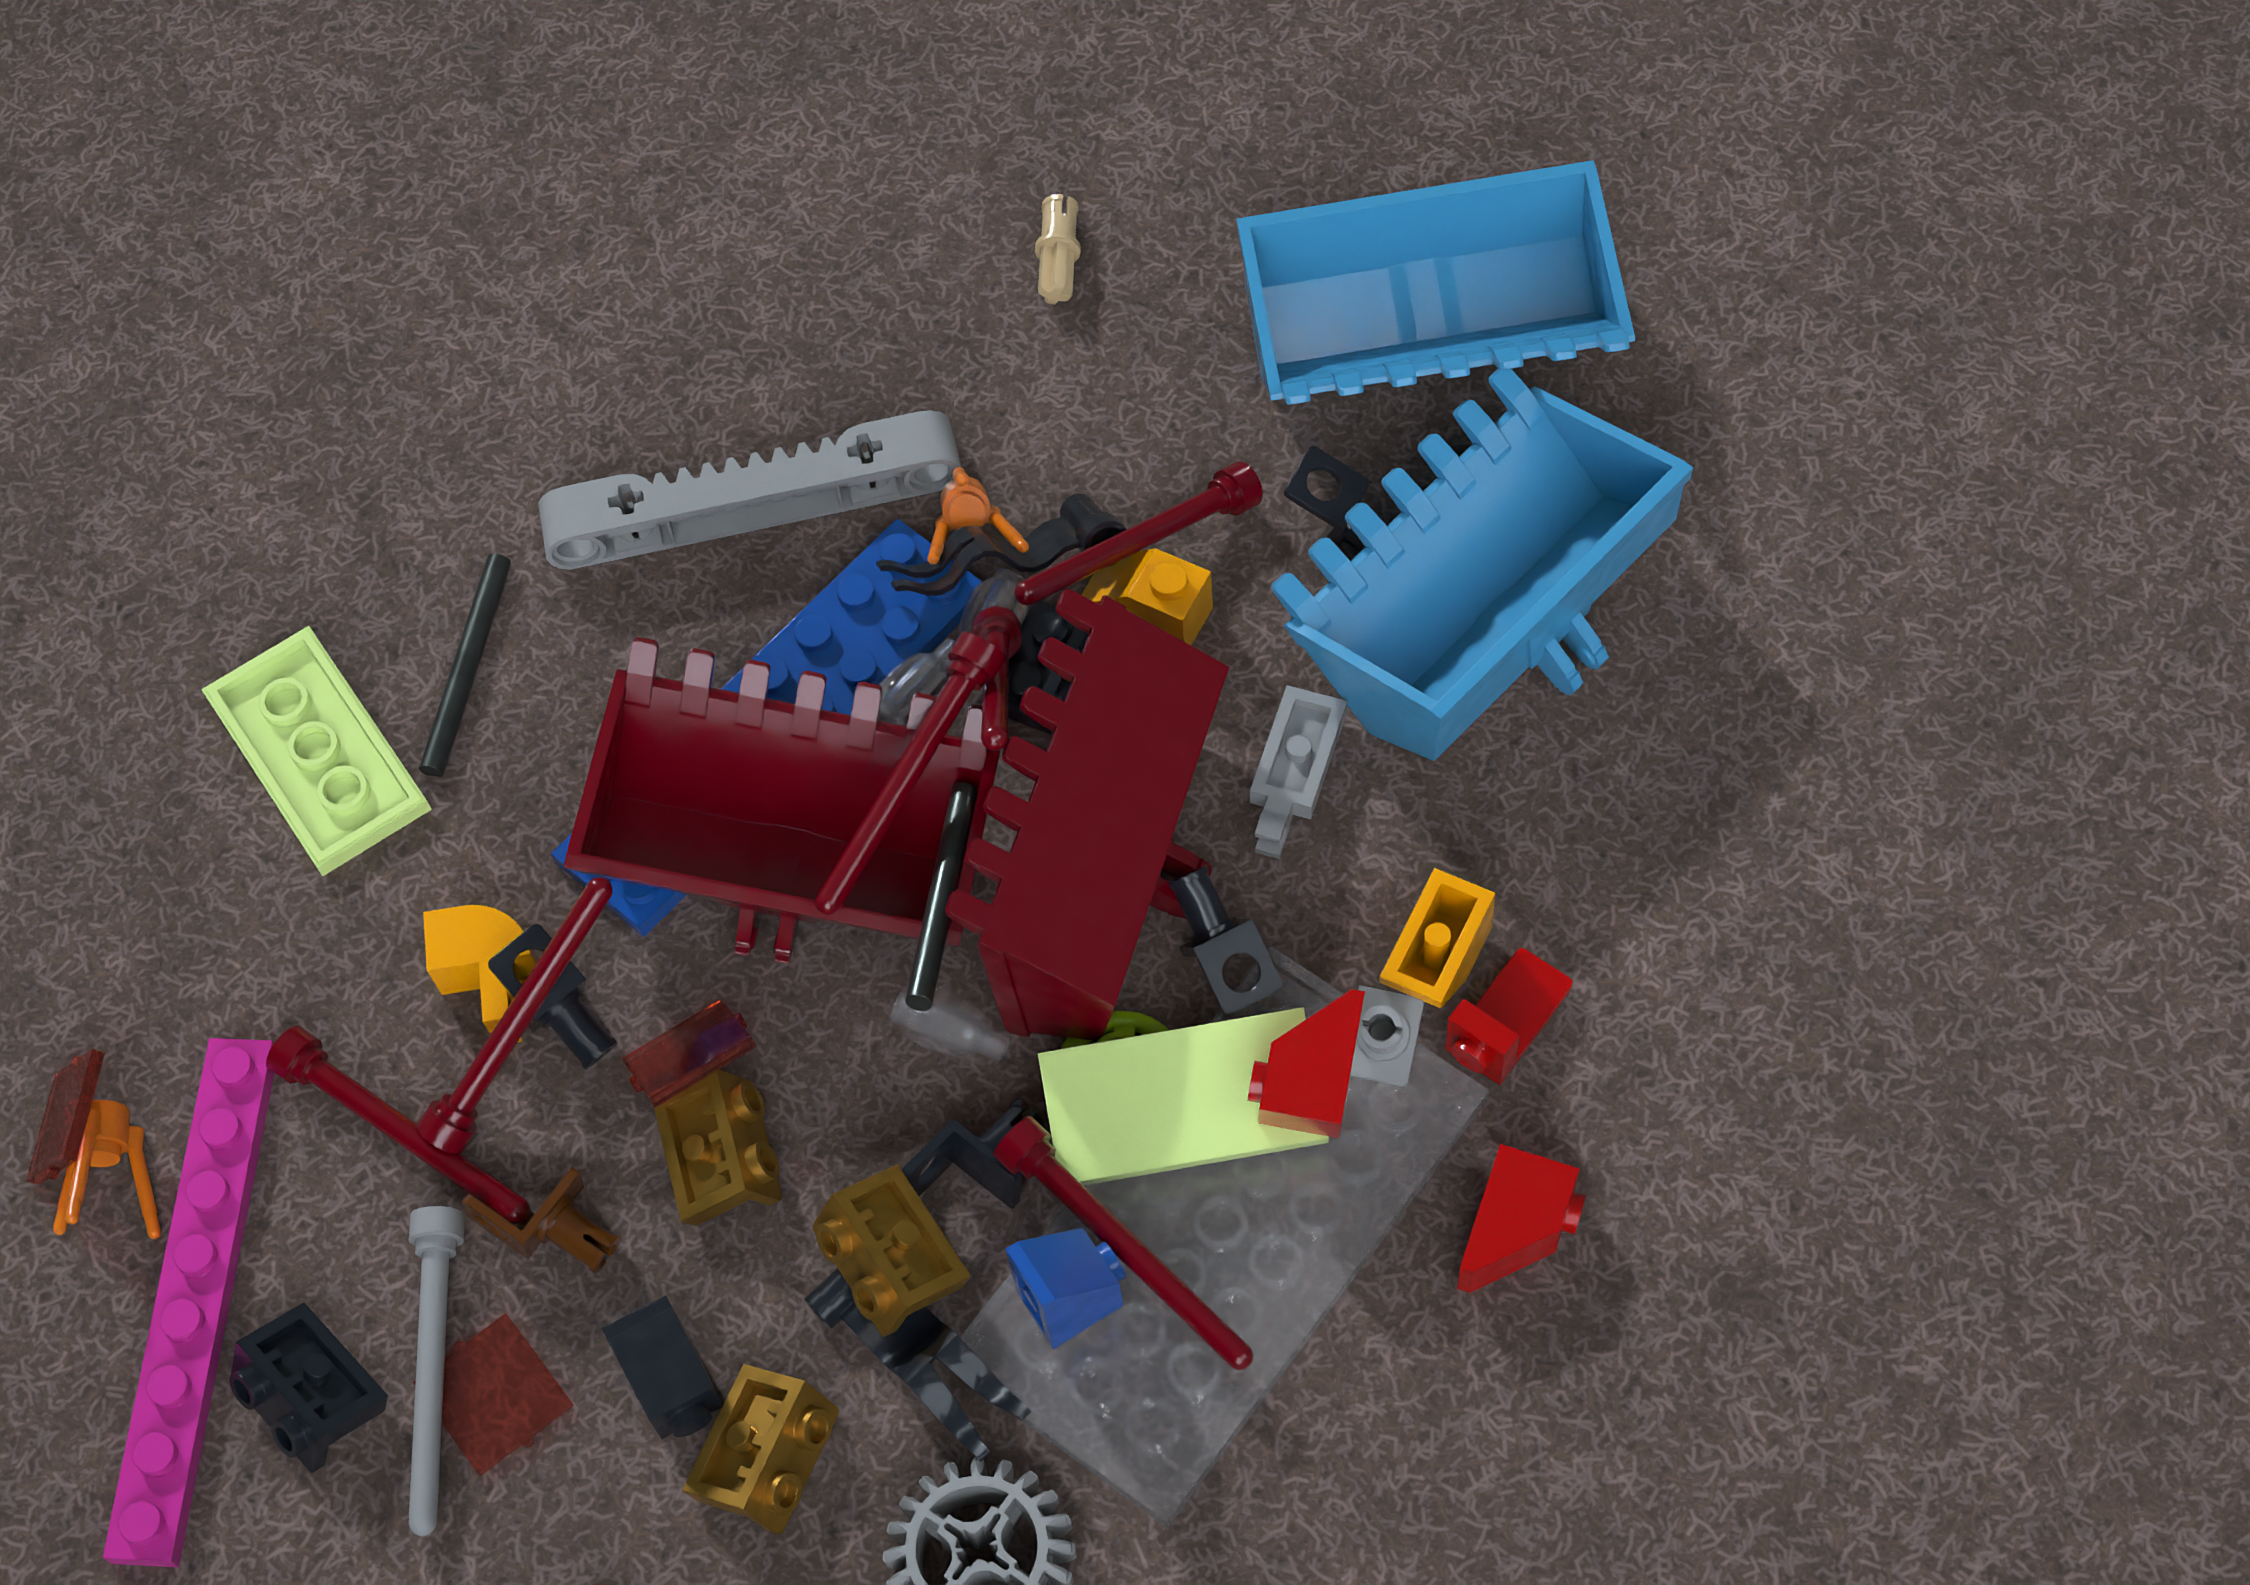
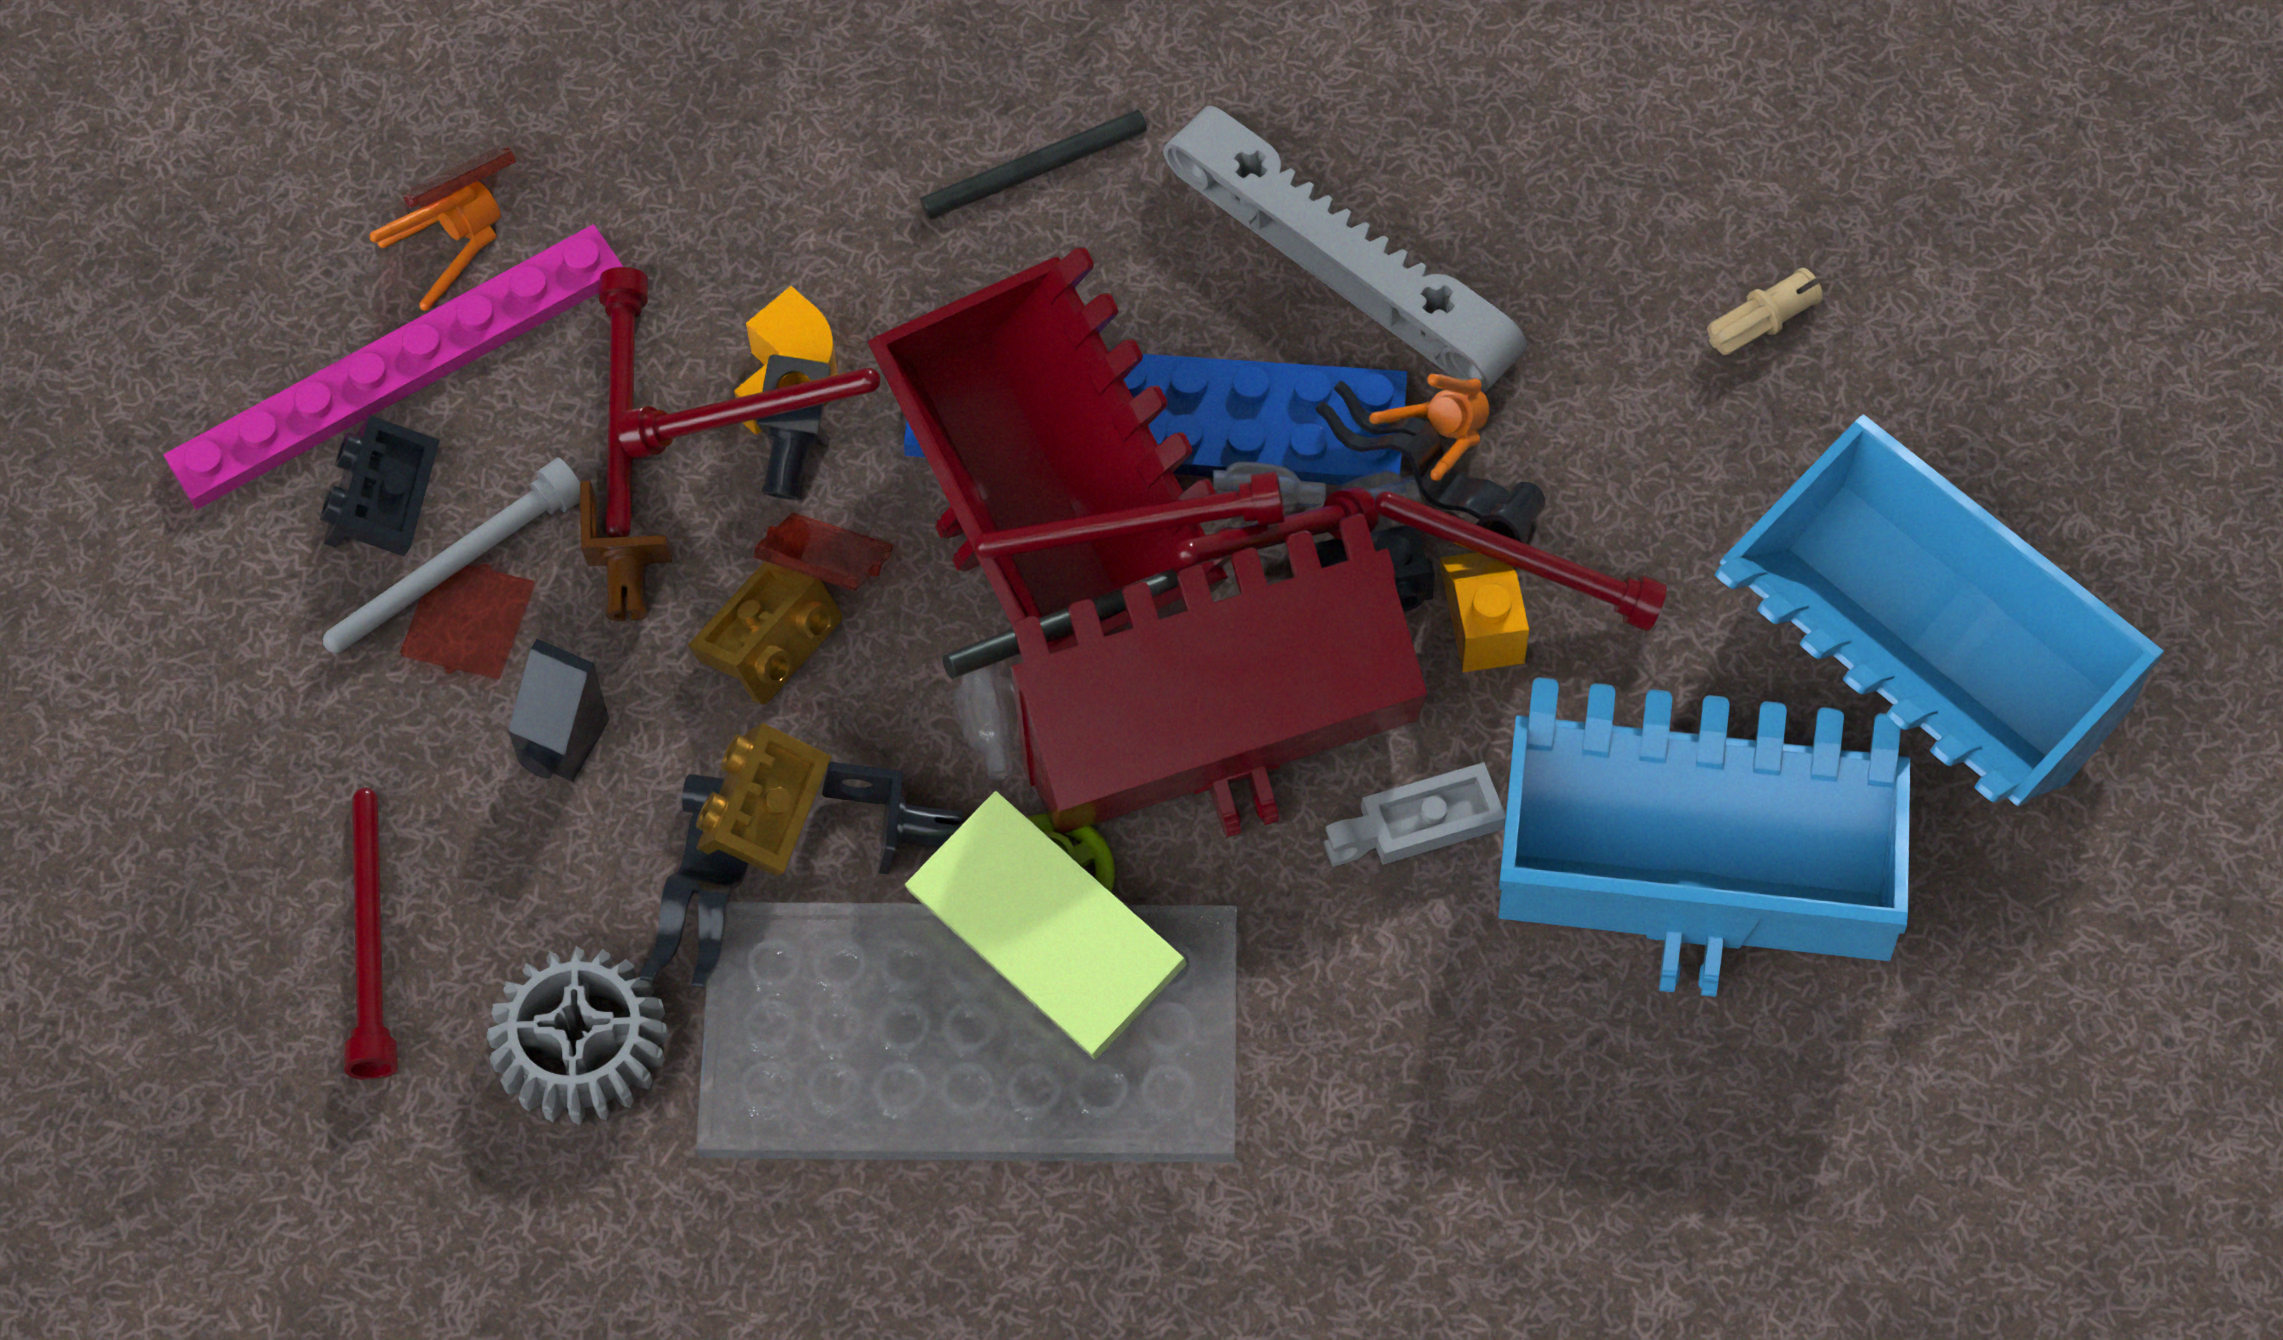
camera: 50 degrees right, 0 degrees up
(316, 750) = (881, 118): yellowish green tile -> none
(762, 1447) = (553, 830): pearl gold bracket -> none
(1029, 1152) = (909, 841): dark red piece -> none
(1066, 1282) = (817, 936): blue slope -> none
(1218, 938) = (1208, 860): black bracket -> none
(1310, 1070) = (1128, 995): red slope -> none
(1351, 491) = (1686, 690): black bracket -> none
(1387, 1036) = (1218, 1037): light grey bracket -> none
(1440, 939) = (1328, 1027): light orange slope -> none
(1507, 1016) = (1314, 1127): red bracket -> none
(1520, 1216) = (1139, 1246): red slope -> none

